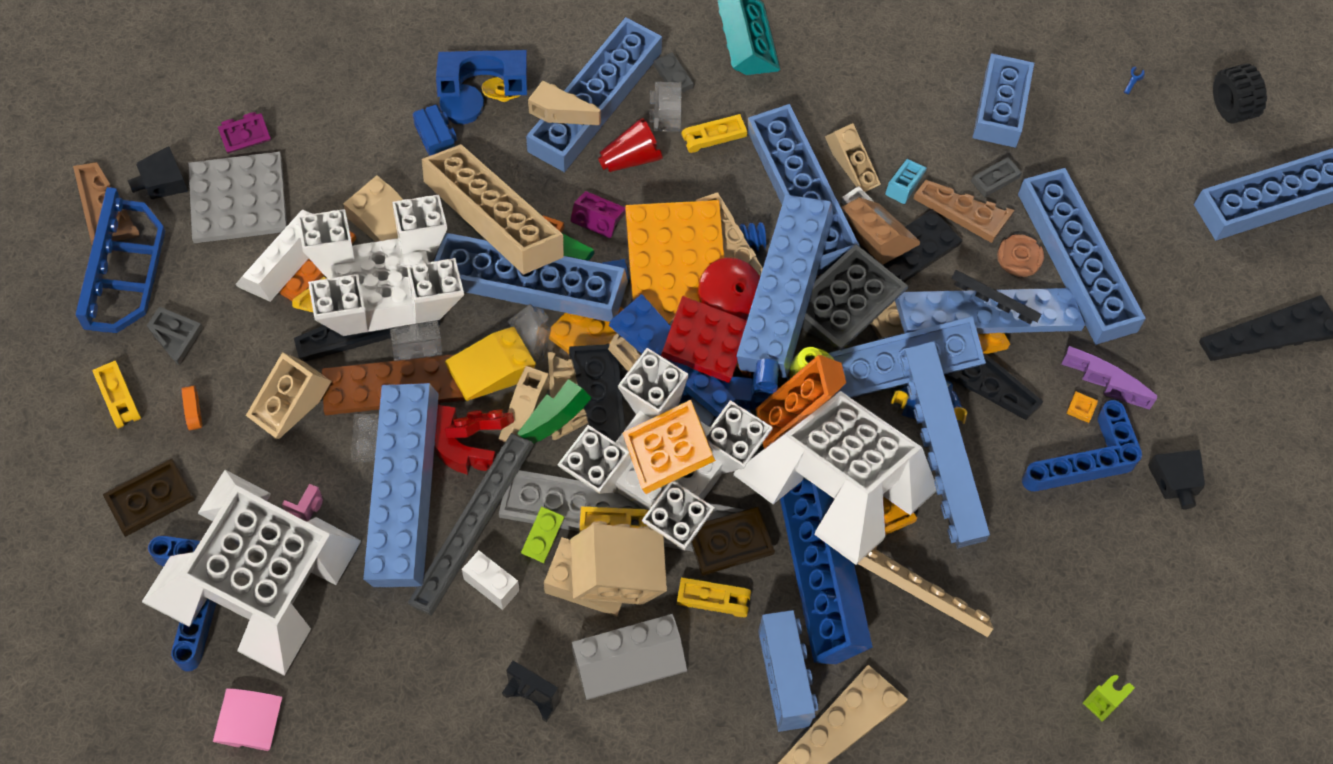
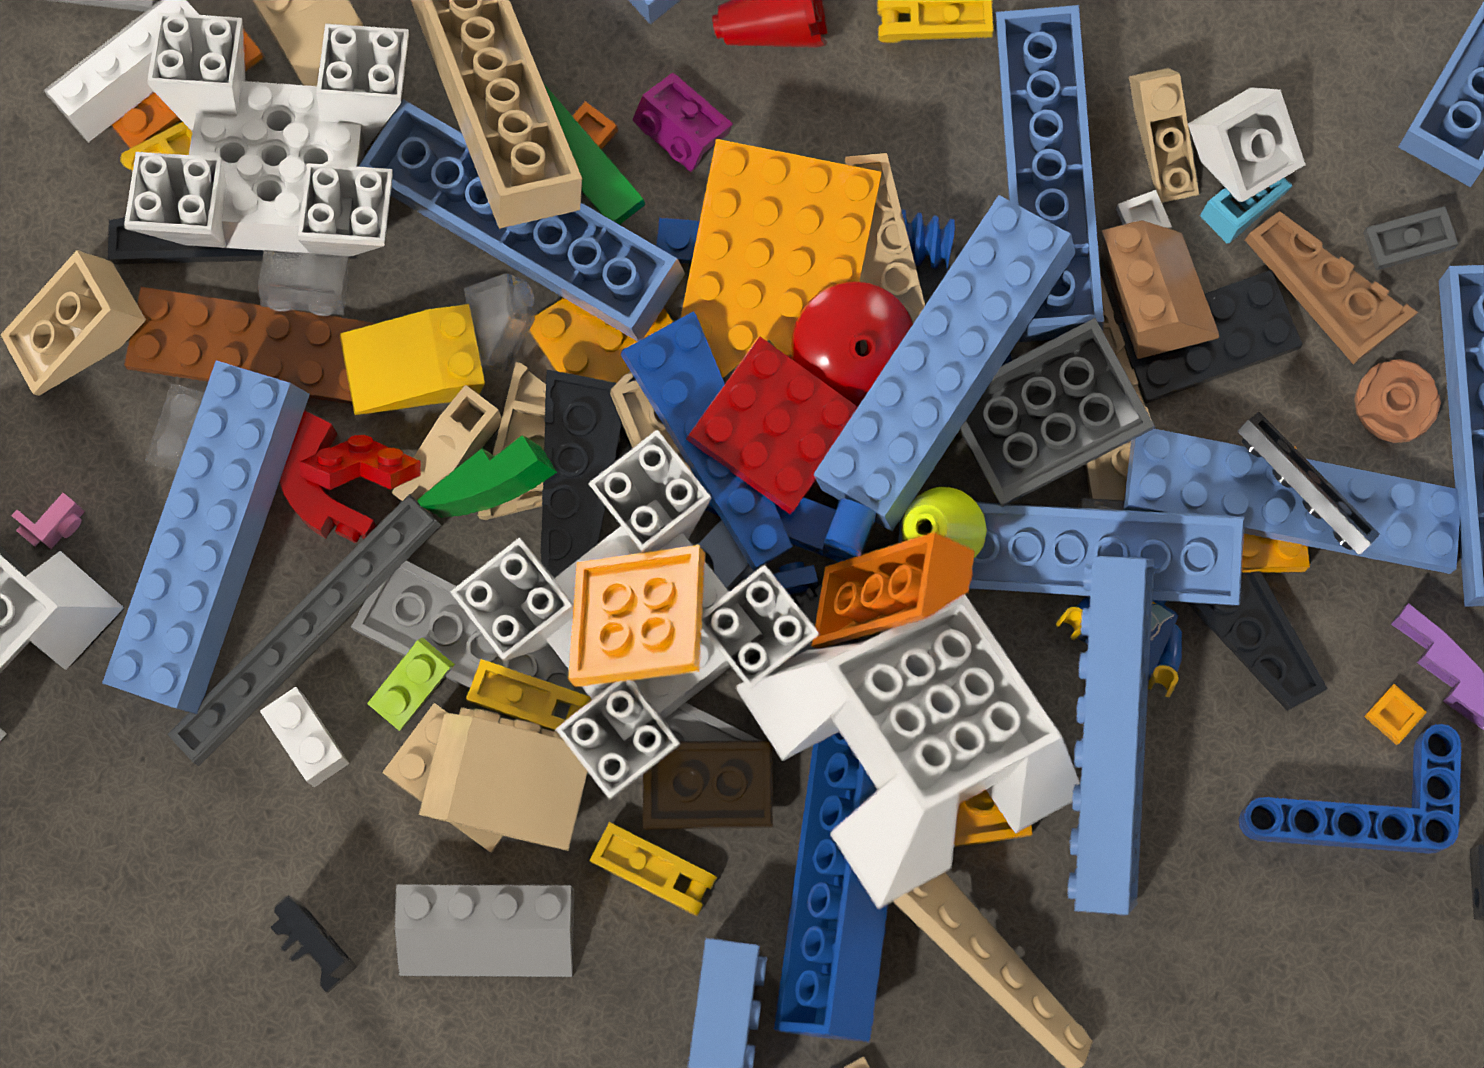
camera: 25 degrees right, 15 degrees up
(898, 150) = (1248, 142): none -> white slope

